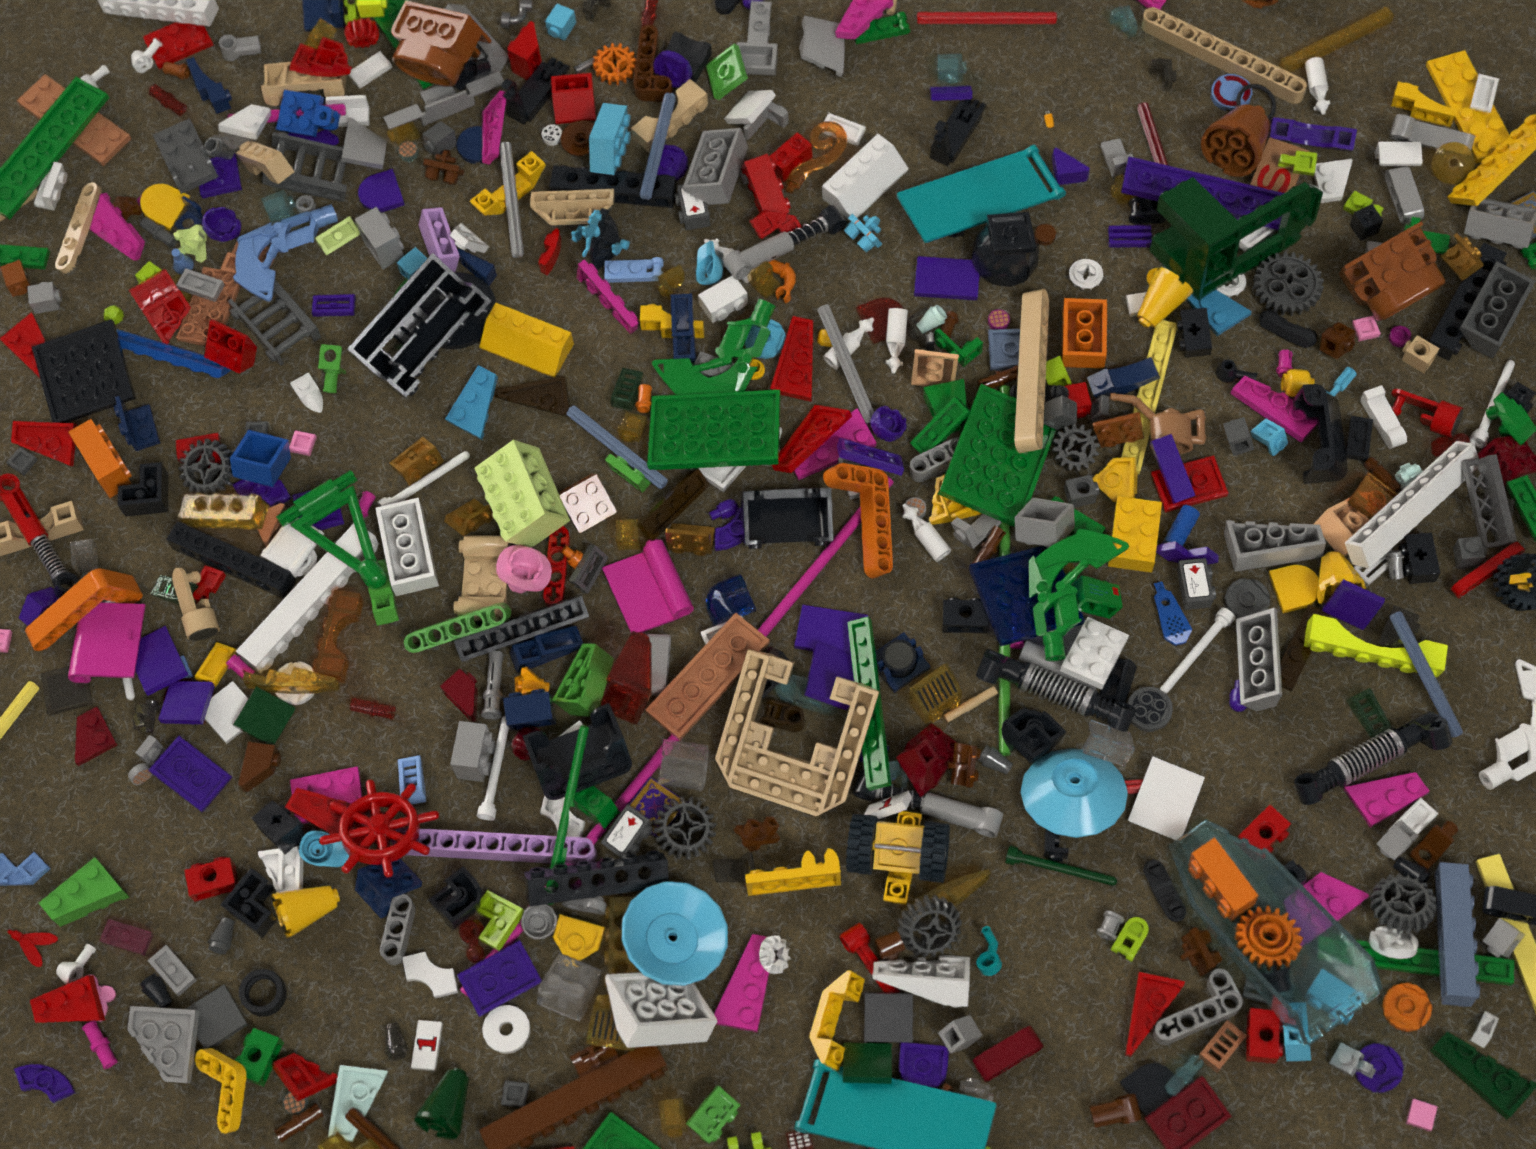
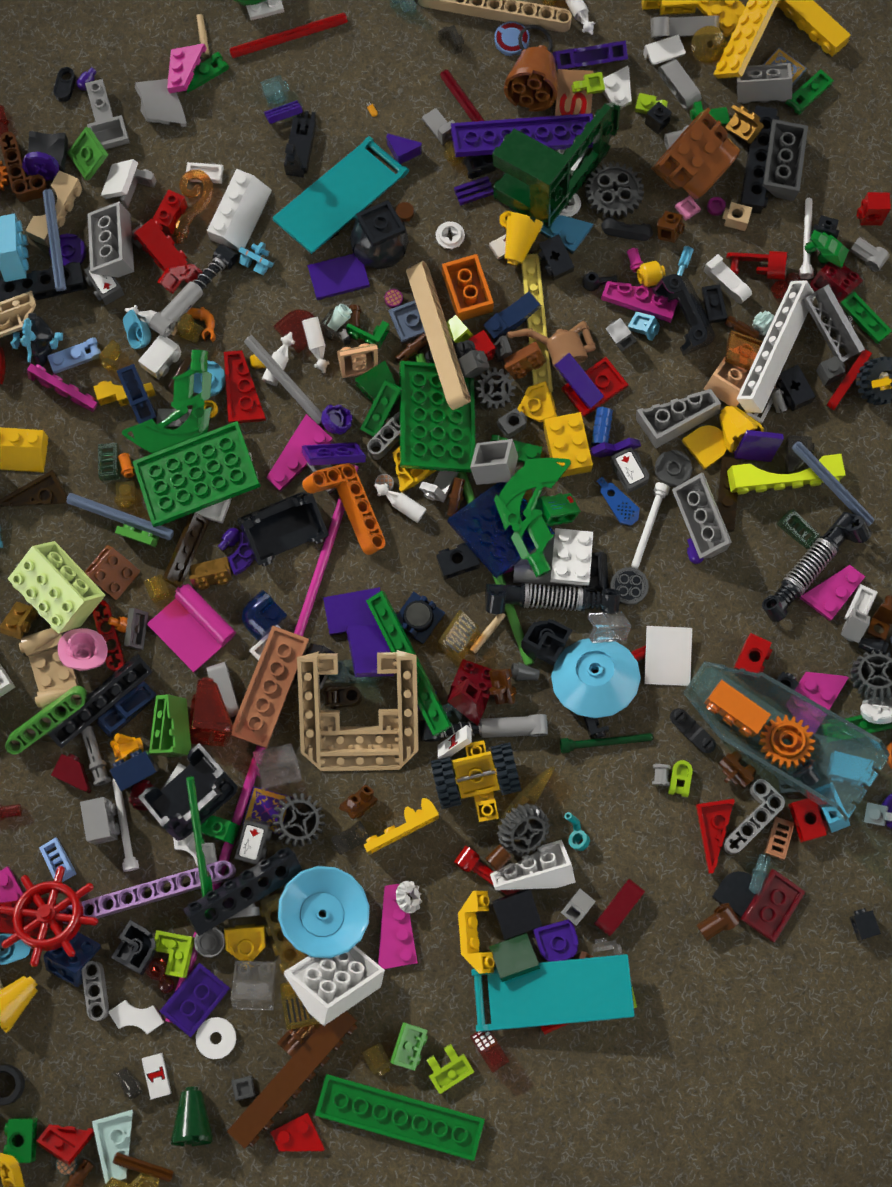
camera: 25 degrees left, 10 degrees up
(810, 435) = (277, 451): red wing -> none

